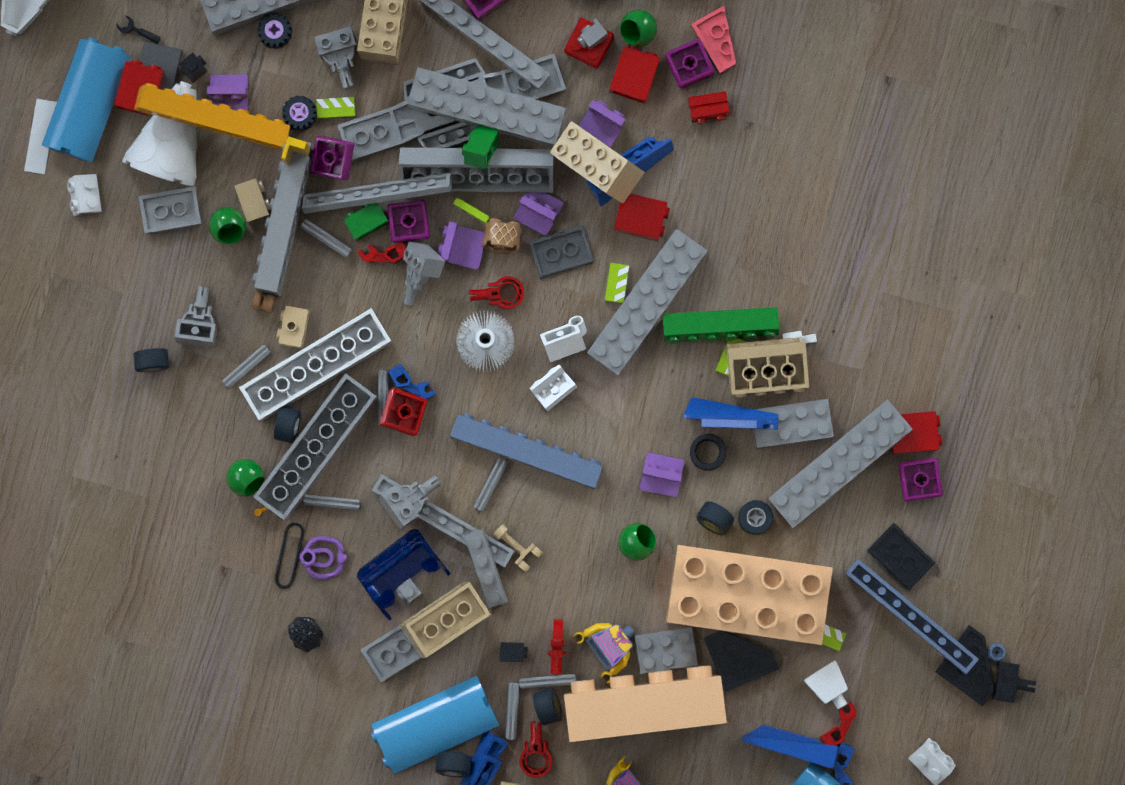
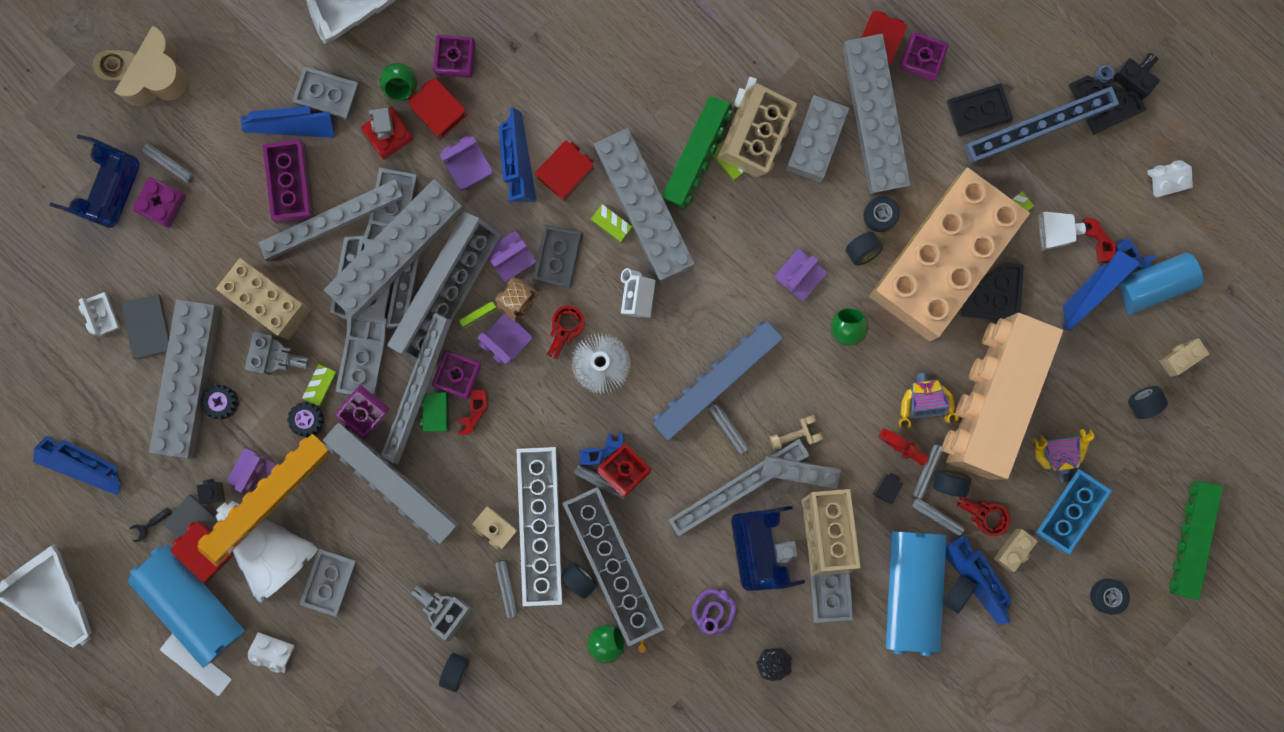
camera: 75 degrees left, 0 degrees up
(227, 225) = (370, 538): green helmet -> none
(252, 199) = (359, 503): tan brick -> none
(267, 300) = (459, 538): medium nougat wheel -> none
(281, 554) = (700, 634): black piece -> none
(294, 145) = (332, 436): yellow panel -> none
(326, 238) = (430, 456): light grey axle -> none
(331, 502) = (669, 577): light grey axle -> none
(404, 502) = (706, 513): light grey brick -> none
(421, 265) = (503, 384): light grey brick -> none
(480, 146) = (426, 272): green brick -> none
(553, 387) = (673, 327): white bracket -> none
(597, 162) = (497, 178): tan brick -> none
(666, 650) = (955, 354): light grey plate -> none
(705, 466) = (816, 224): black tyre -> none
(708, 107) = (501, 60): red brick -> none
(716, 39) = (442, 21): coral wing -> none
(729, 416) = (782, 188): blue wedge -> none

